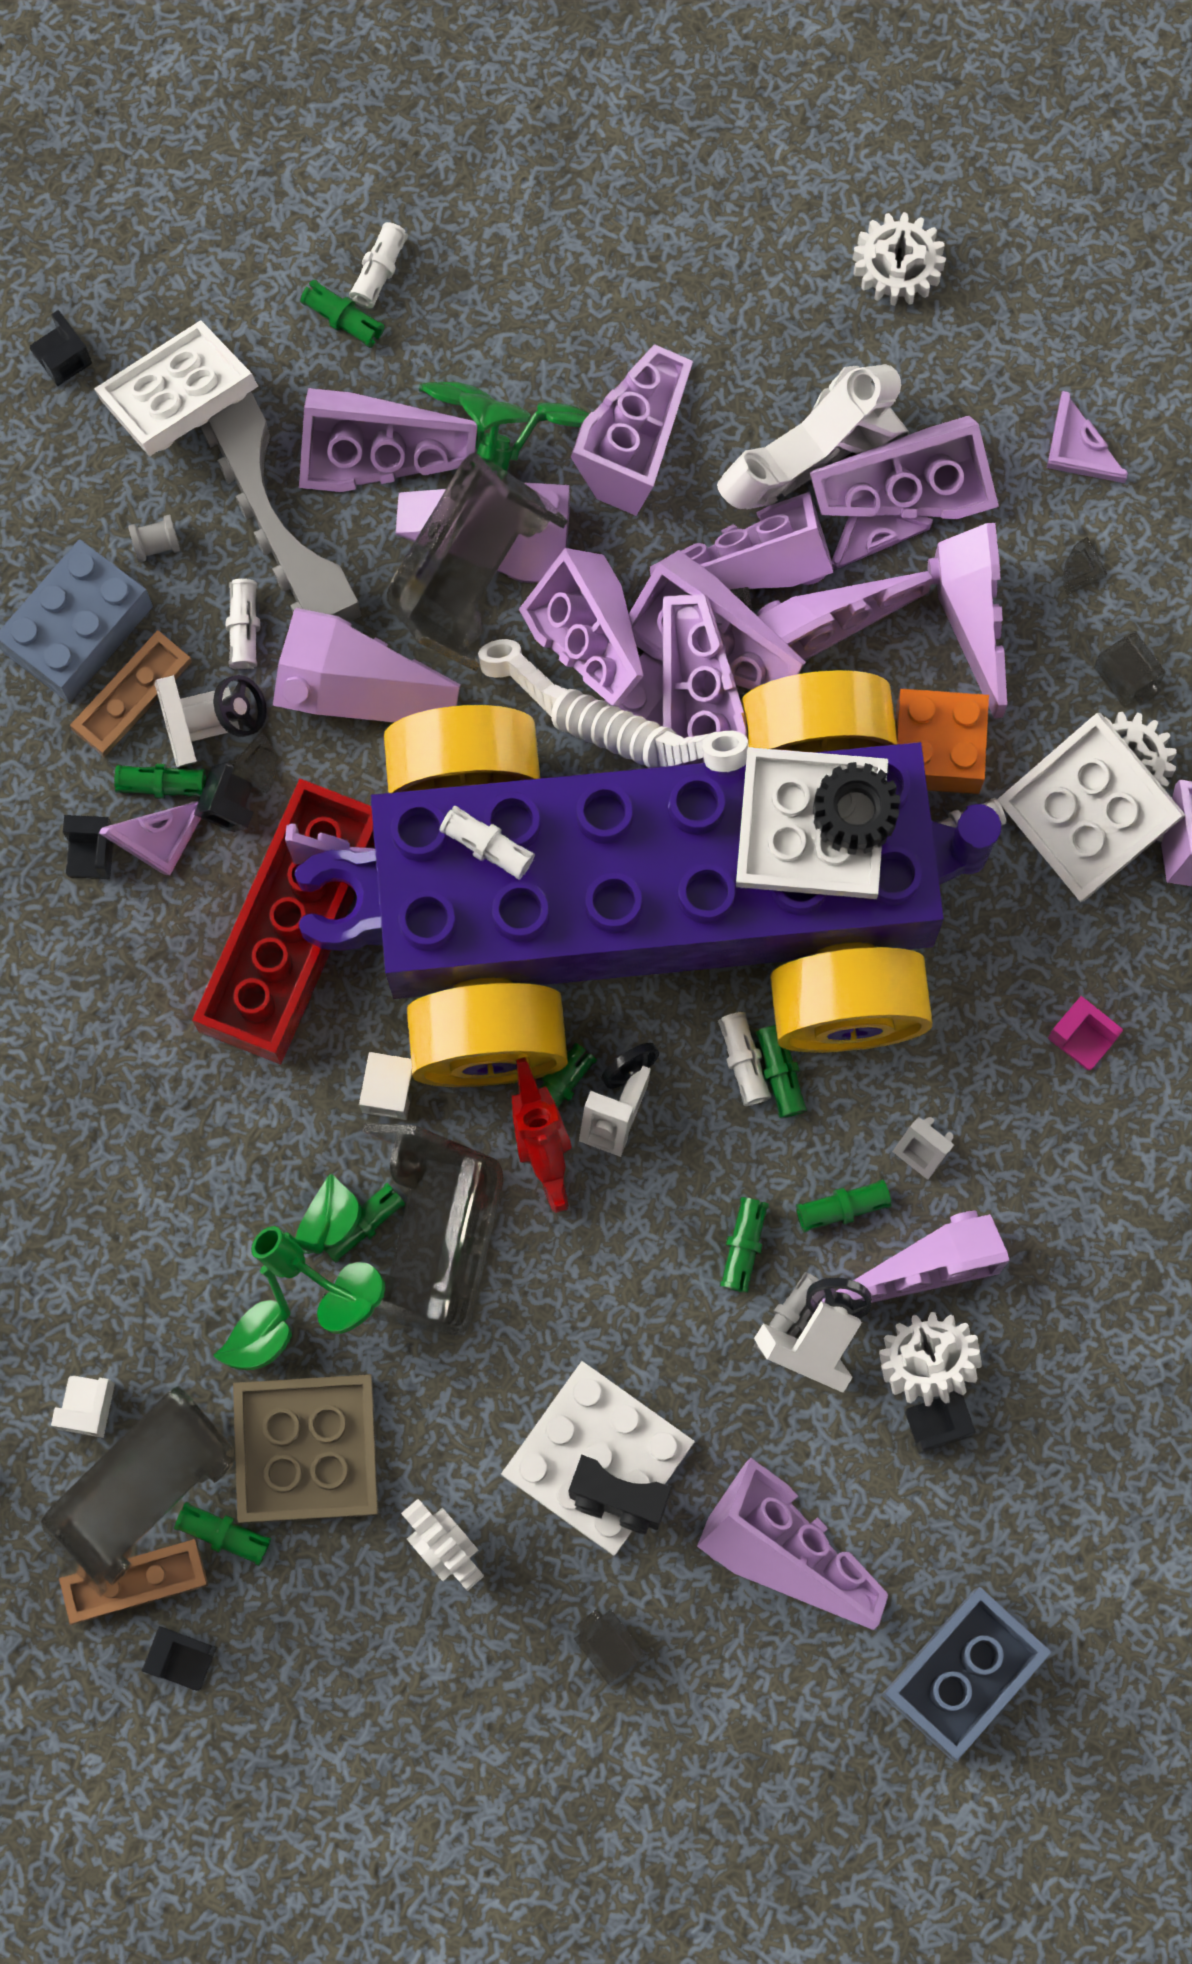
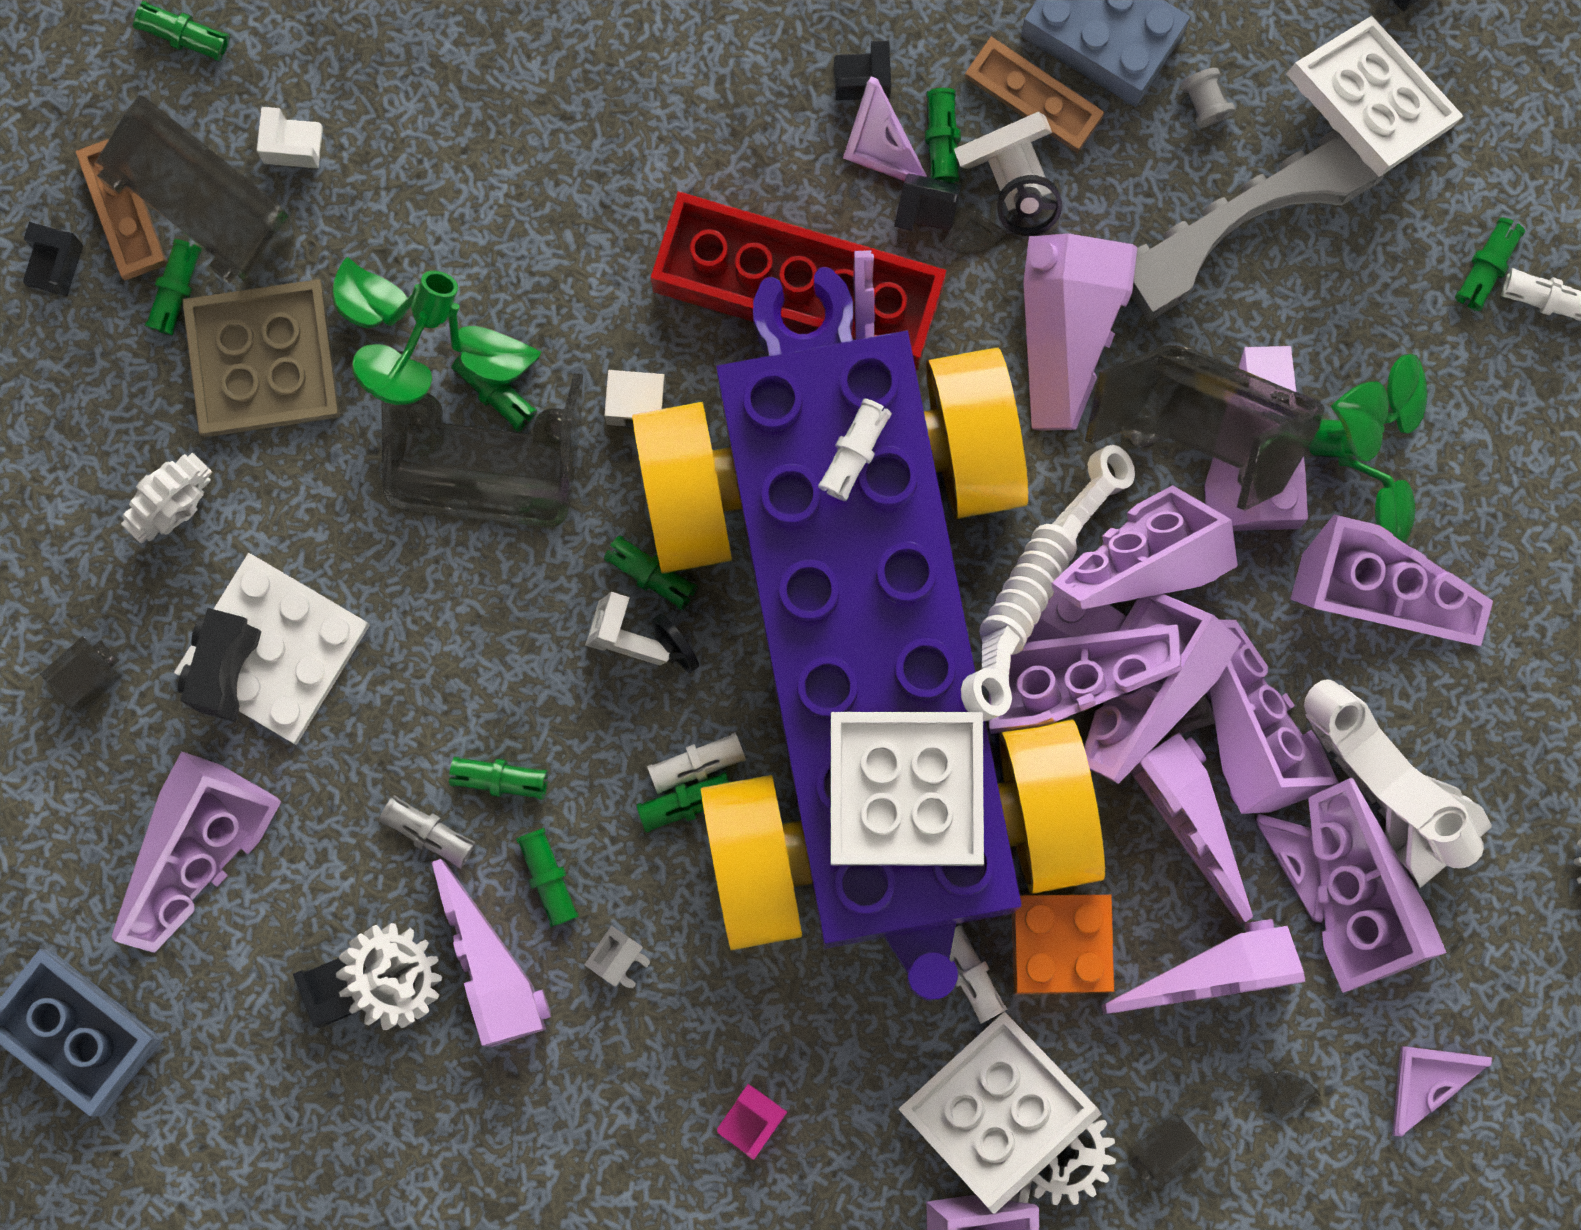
camera: 85 degrees right, 5 degrees up
(243, 624) = (1123, 199): white pin -> none
(372, 440) = (1344, 305): lavender wedge -> none
(541, 1135) = (585, 556): red animal -> none
(824, 1337) = (388, 861): white piece -> none
(862, 781) = (928, 800): black tyre -> none

